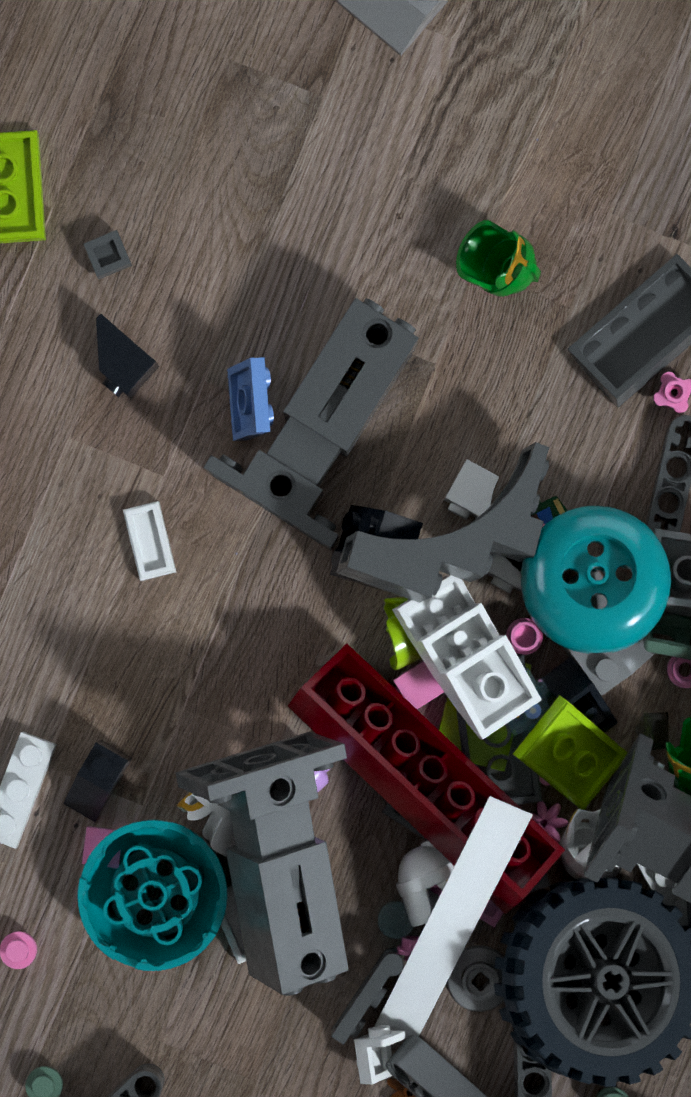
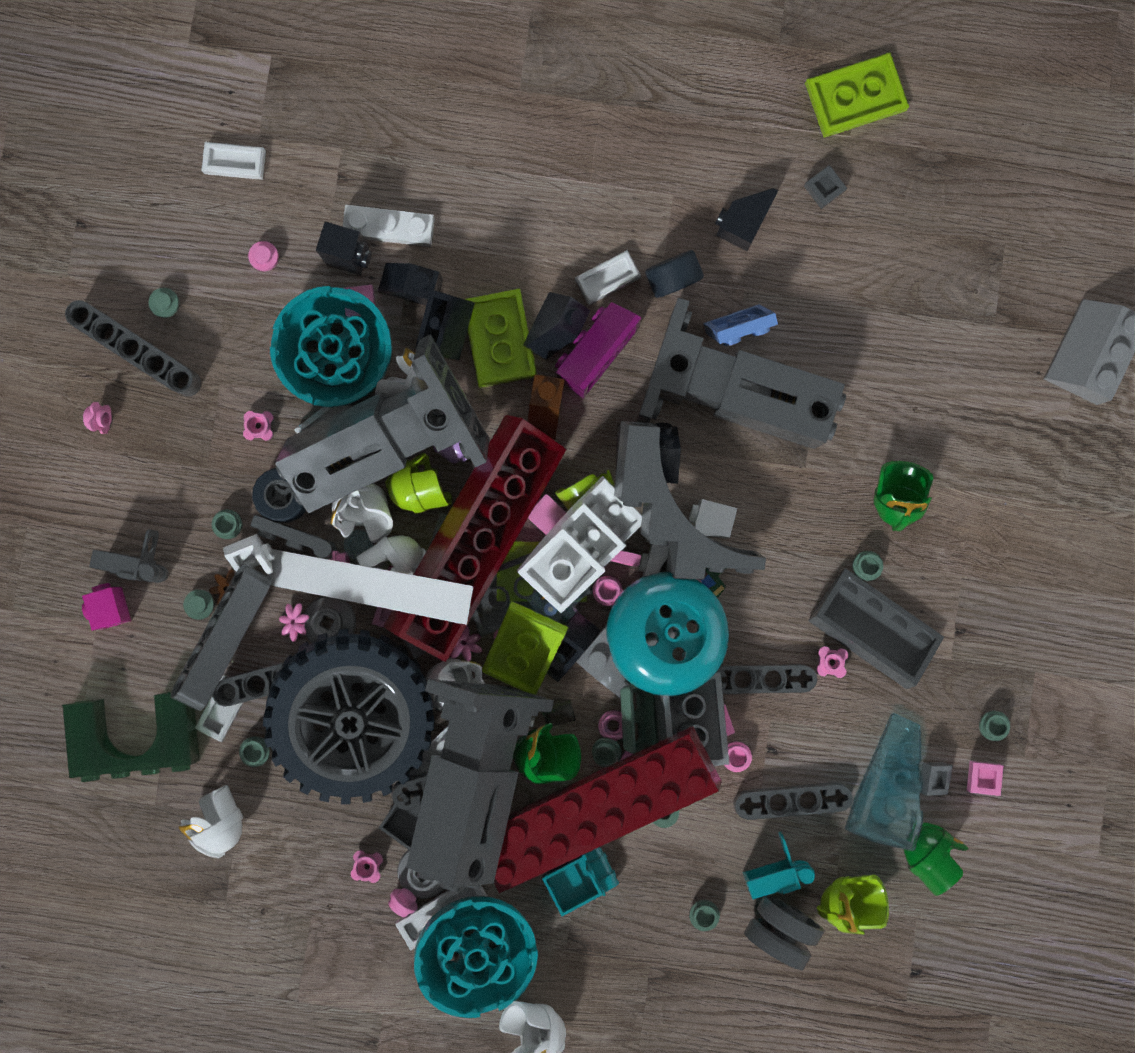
camera: 75 degrees right, 0 degrees up
(38, 850) = (343, 248): none -> black brick
(159, 749) = (447, 322): none -> black brick
(168, 461) = (674, 274): none -> black wheel
(189, 689) = (497, 339): none -> lime tile
(193, 618) = (556, 325): none -> black slope
(214, 1013) = (250, 422): none -> bright pink plate
(233, 577) = (597, 348): none -> magenta slope
(287, 655) = (546, 404): none -> reddish brown slope
(317, 1011) = (270, 498): none -> black wheel
(332, 1073) = (227, 524): none -> sand green plate
(349, 831) = (416, 489): none -> lime helmet
(356, 900) = (363, 508): none -> white helmet
(469, 1020) = (294, 621): none -> bright pink plant
(494, 601) = (627, 558): none -> bright pink tile
(571, 321) = (867, 565): none -> sand green plate

